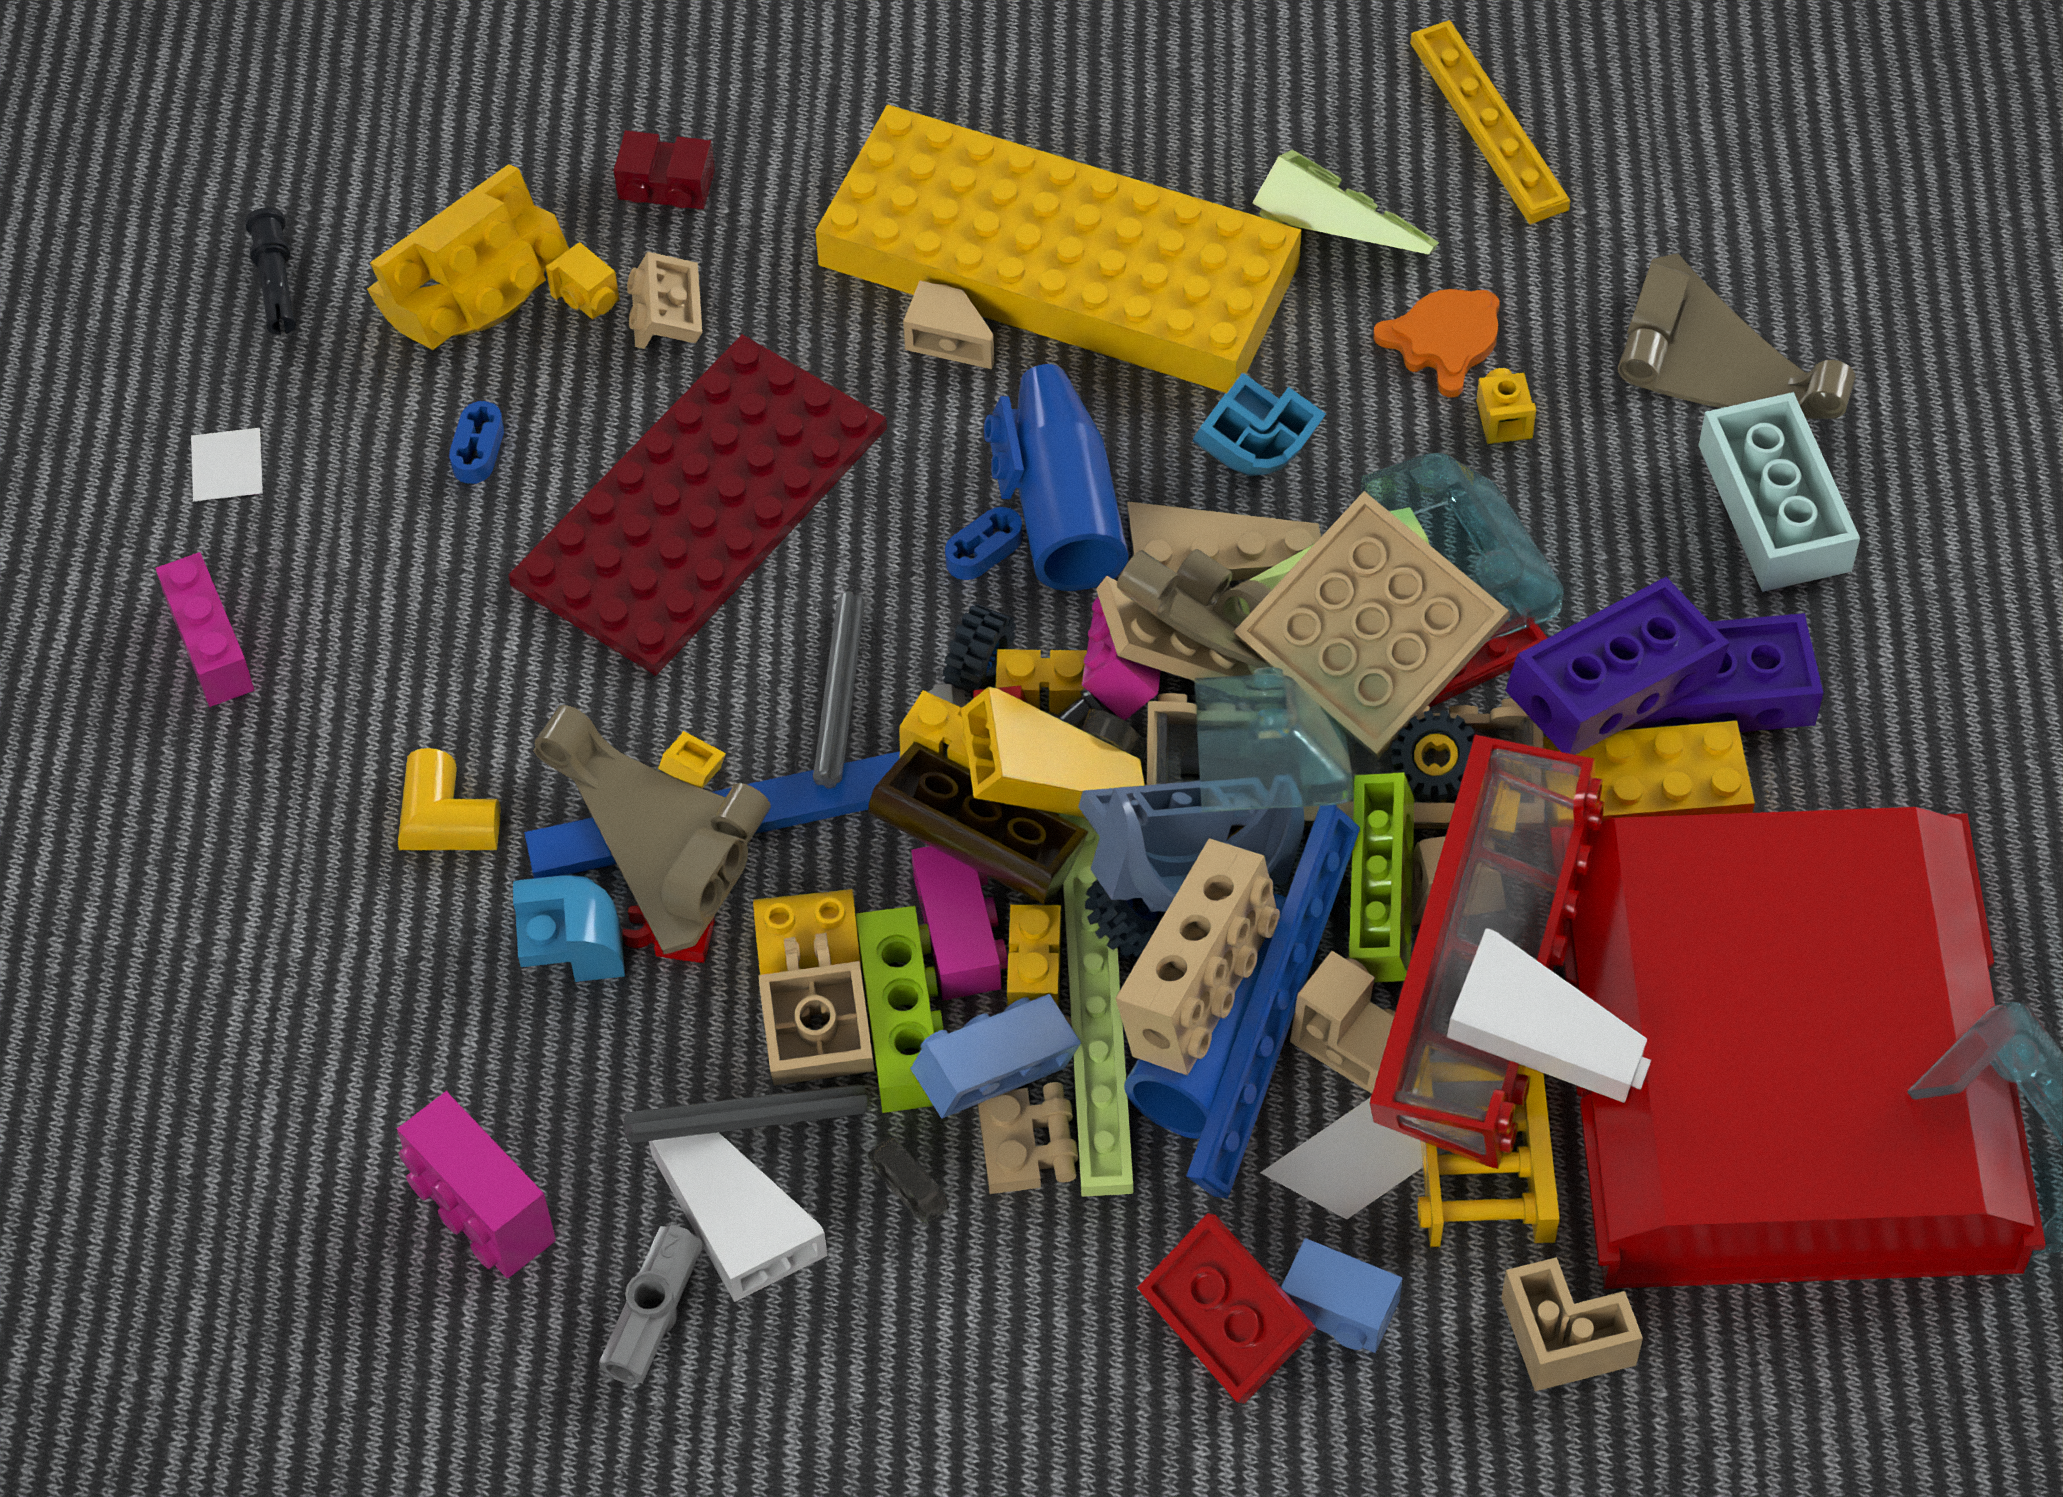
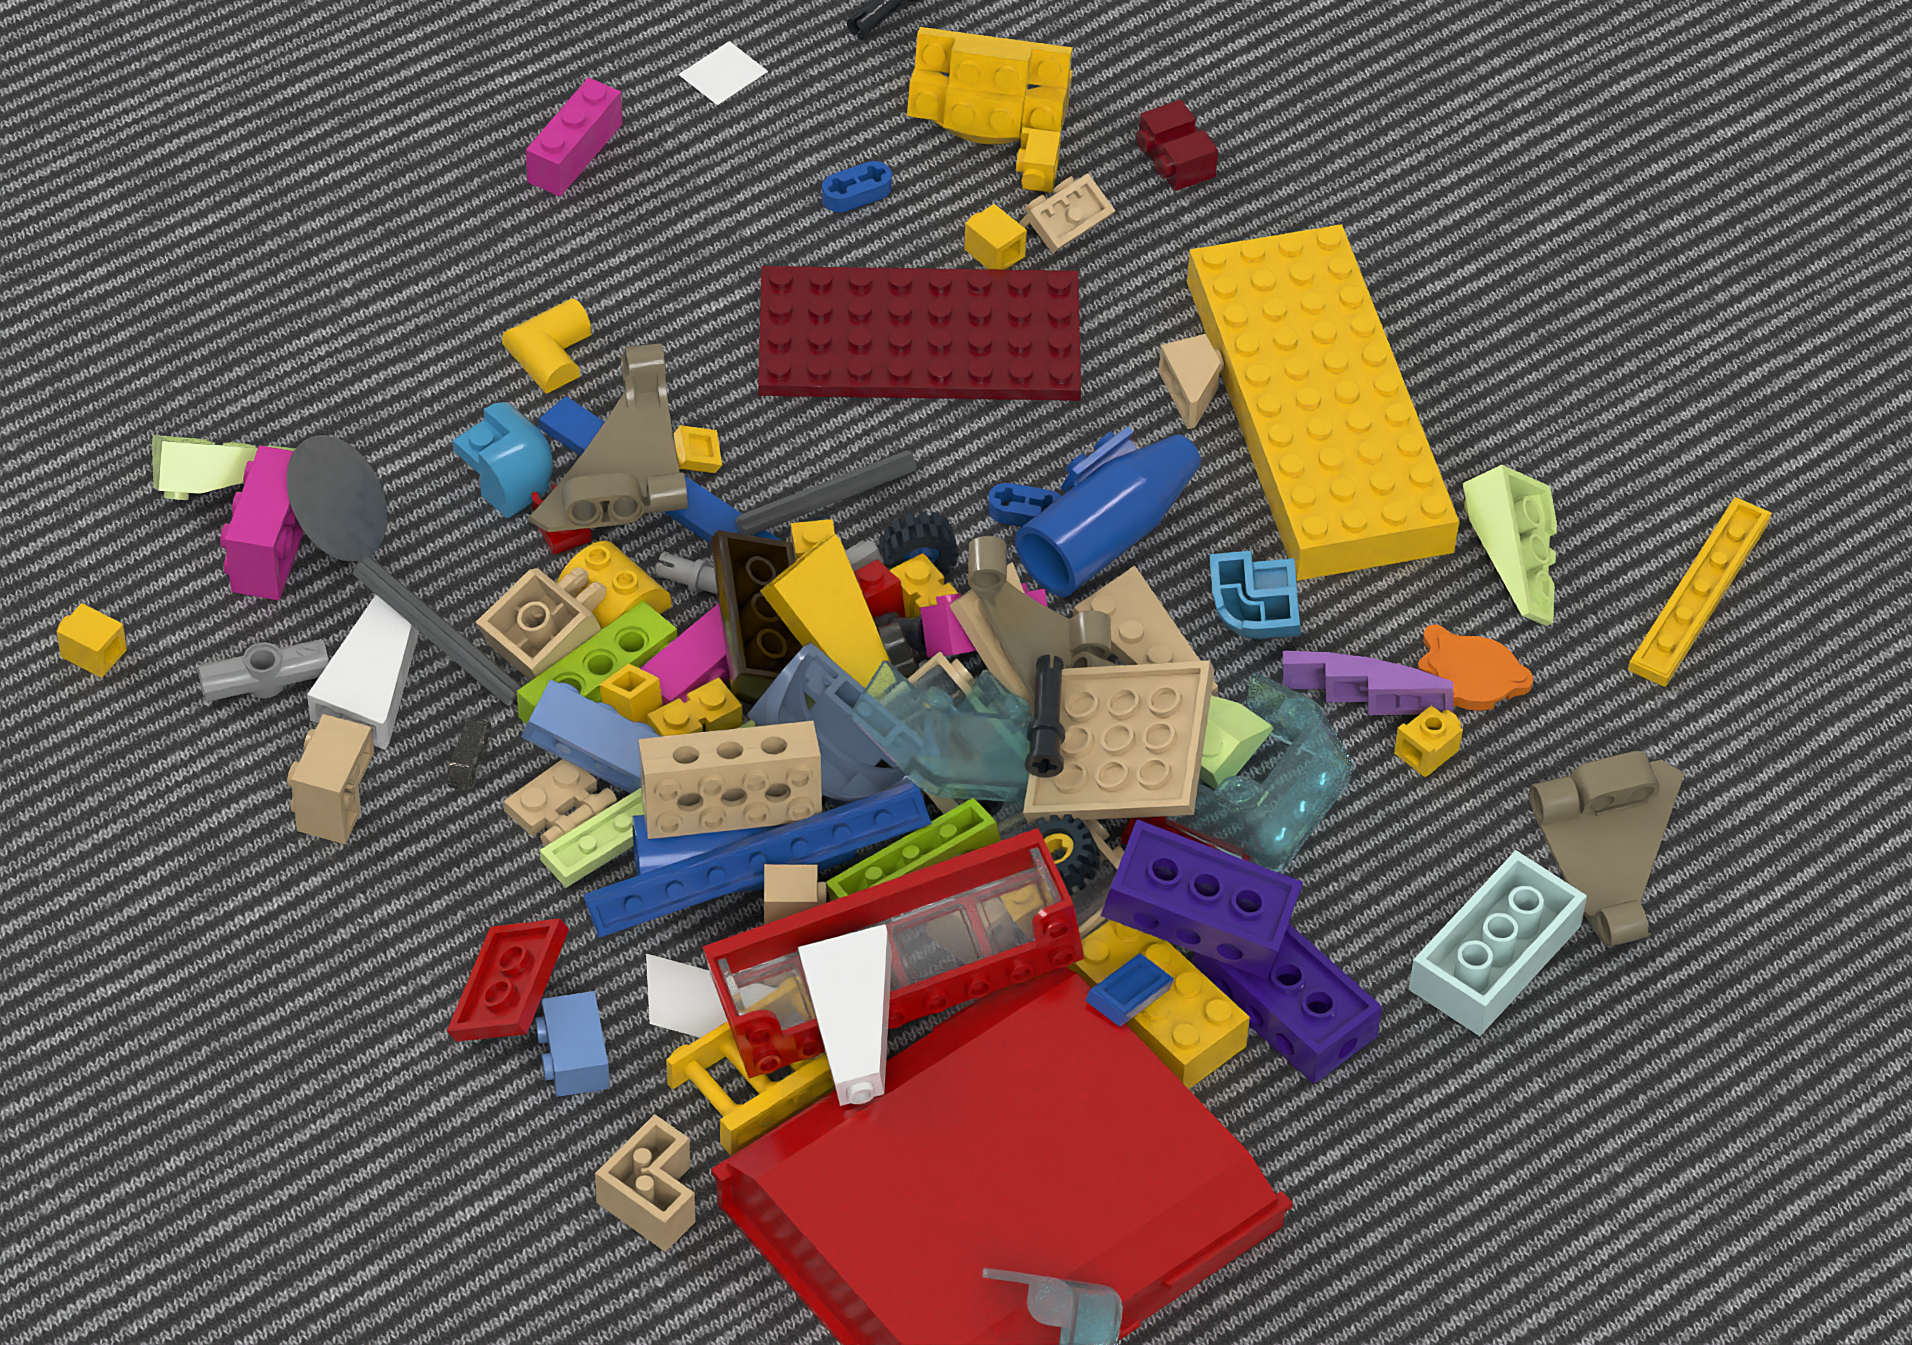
camera: 50 degrees right, 5 degrees down
(341, 1203) = (198, 465): none -> yellowish green wedge
(473, 1445) = (91, 640): none -> yellow brick
(502, 1103) = (336, 498): none -> flat silver sticker
(647, 373) = (995, 238): none -> yellow brick
(846, 853) = (696, 574): none -> light grey pin
(865, 1315) = (329, 778): none -> tan brick
(966, 991) = (632, 693): none -> yellow brick
(1316, 672) = (1046, 731): none -> black pin
(1421, 402) = (1383, 684): none -> medium lavender slope
(1662, 788) = (1129, 989): none -> blue tile

